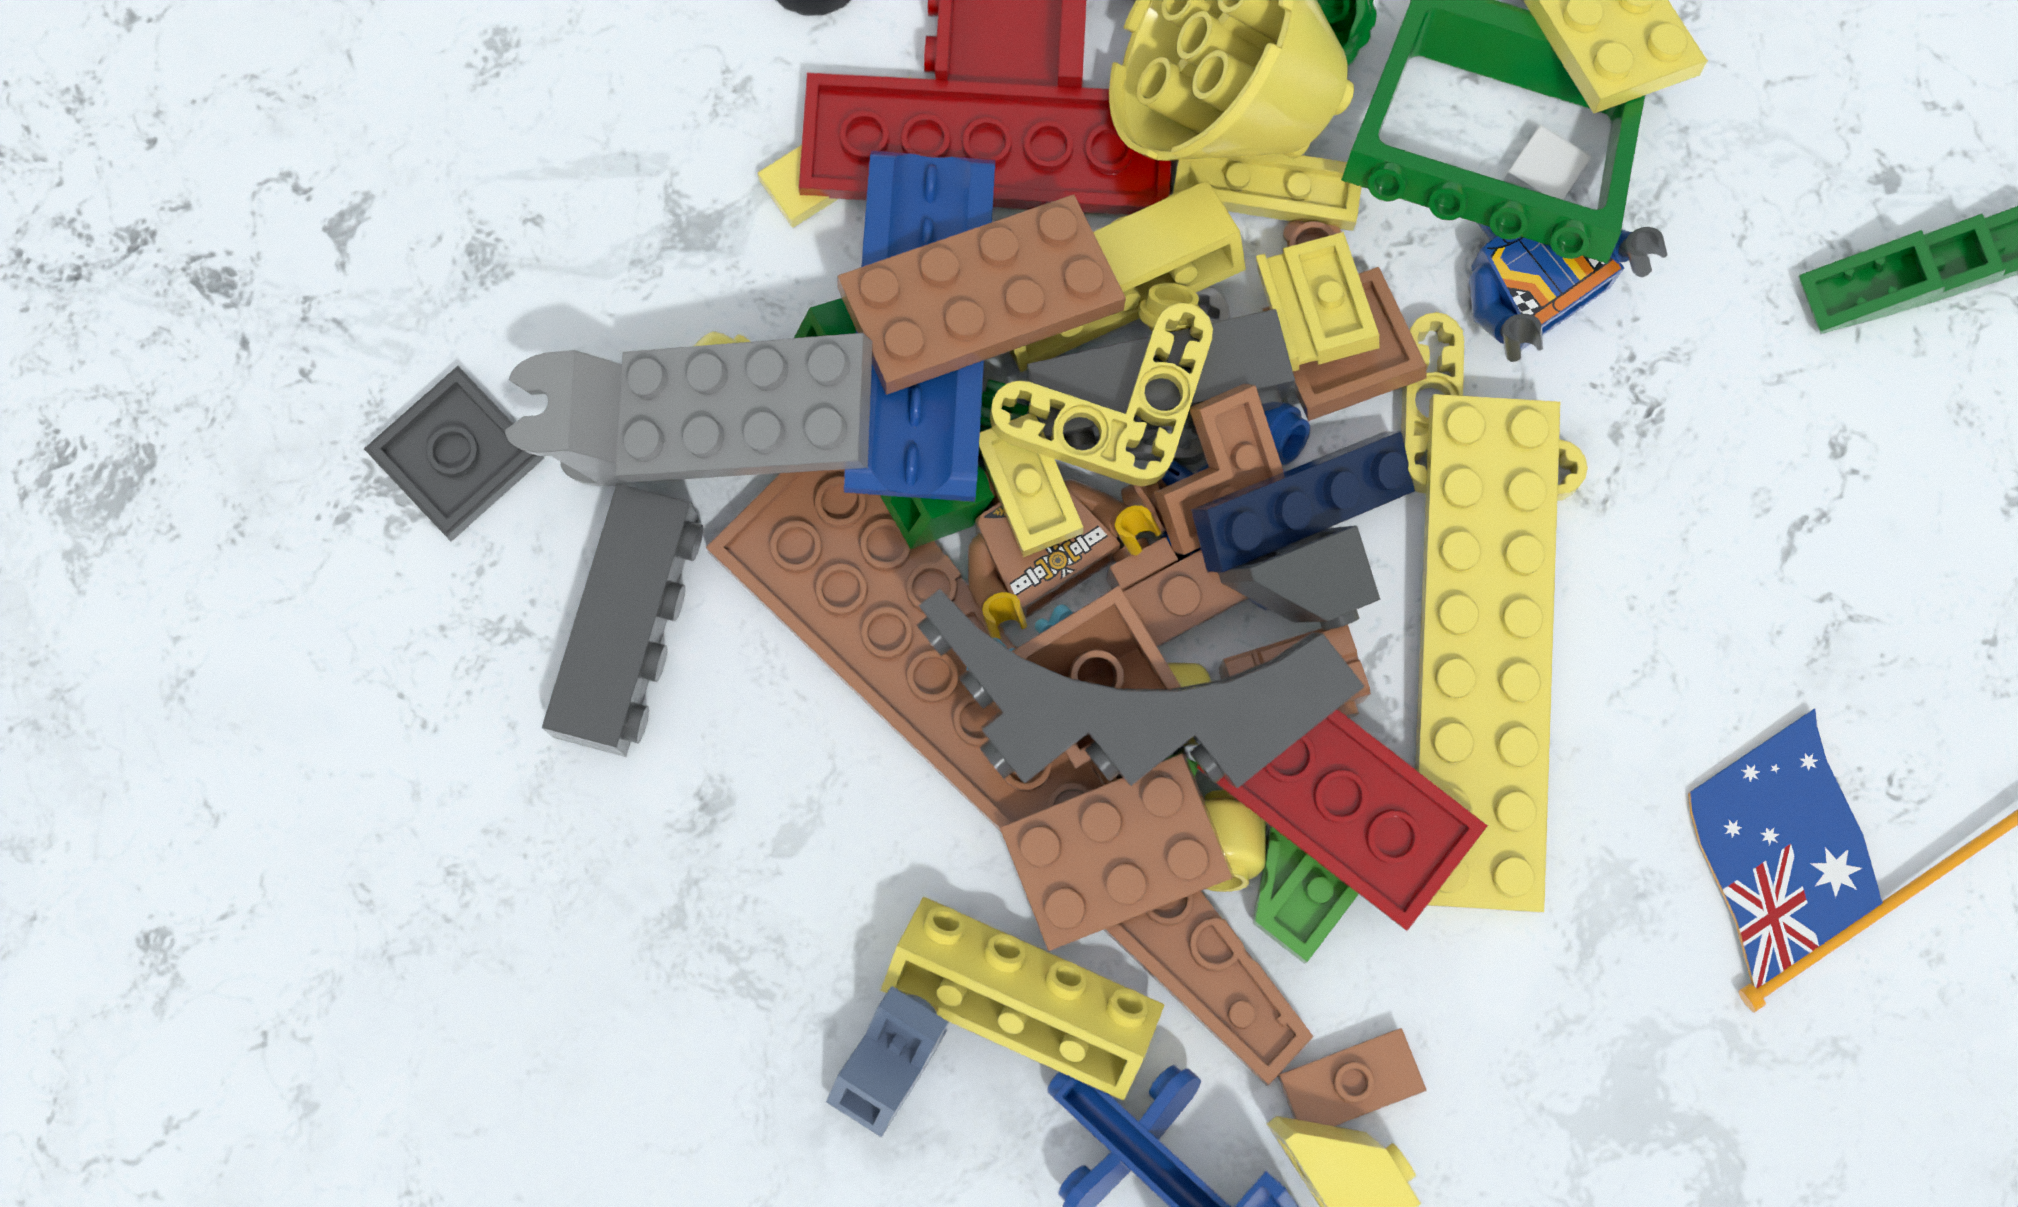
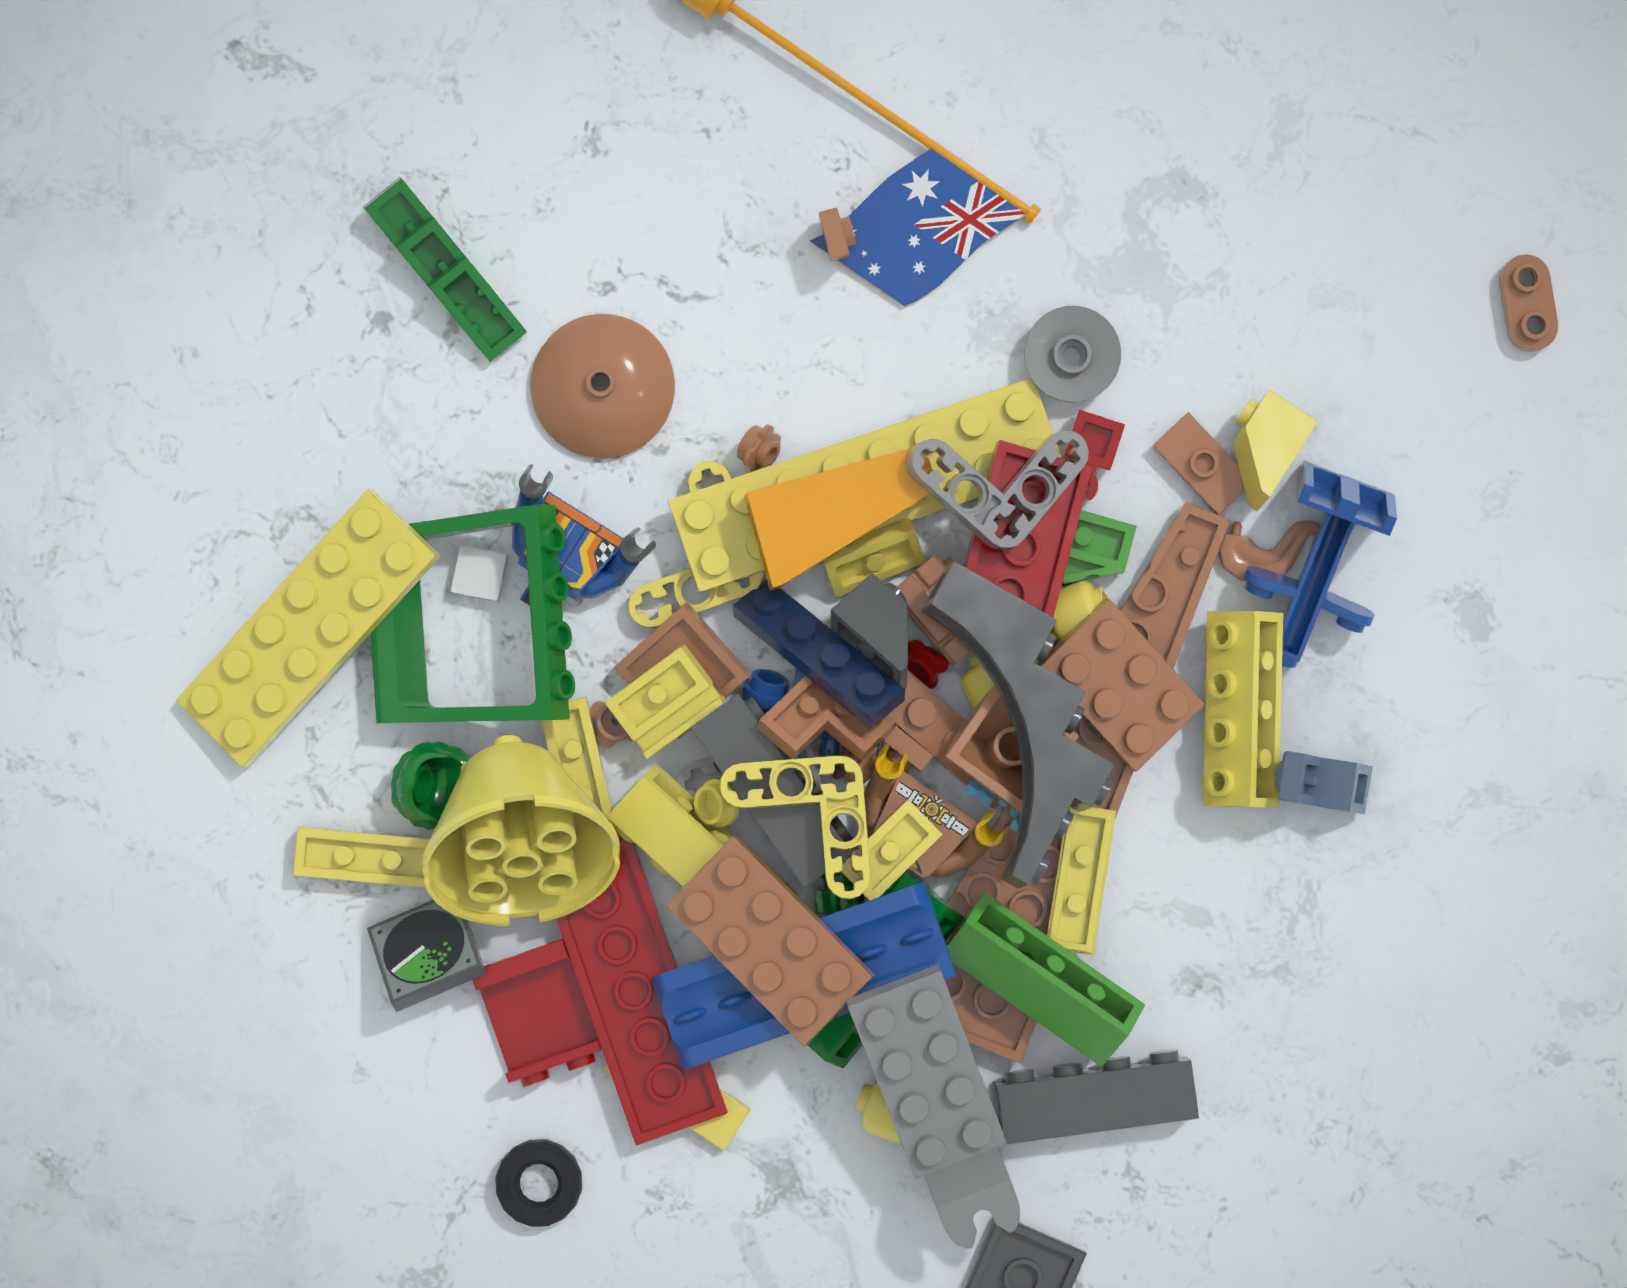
camera: 110 degrees left, 10 degrees up
(794, 603) = (1044, 979): none -> bright green brick
(895, 706) = (1081, 880): none -> light yellow tile
(1221, 1084) = (1240, 552): none -> nougat piece
(1237, 629) = (925, 663): none -> red plate
(1396, 626) = (879, 552): none -> light yellow plate
(1417, 777) = (991, 501): none -> light grey beam
(1428, 953) = (1102, 442): none -> red plate
(1477, 580) = (825, 512): none -> light orange slope
(1581, 542) = (759, 447): none -> nougat plate
(1588, 965) = (1078, 329): none -> light grey dish
(1699, 424) = (610, 420): none -> nougat dish
(1818, 736) = (837, 234): none -> nougat plate

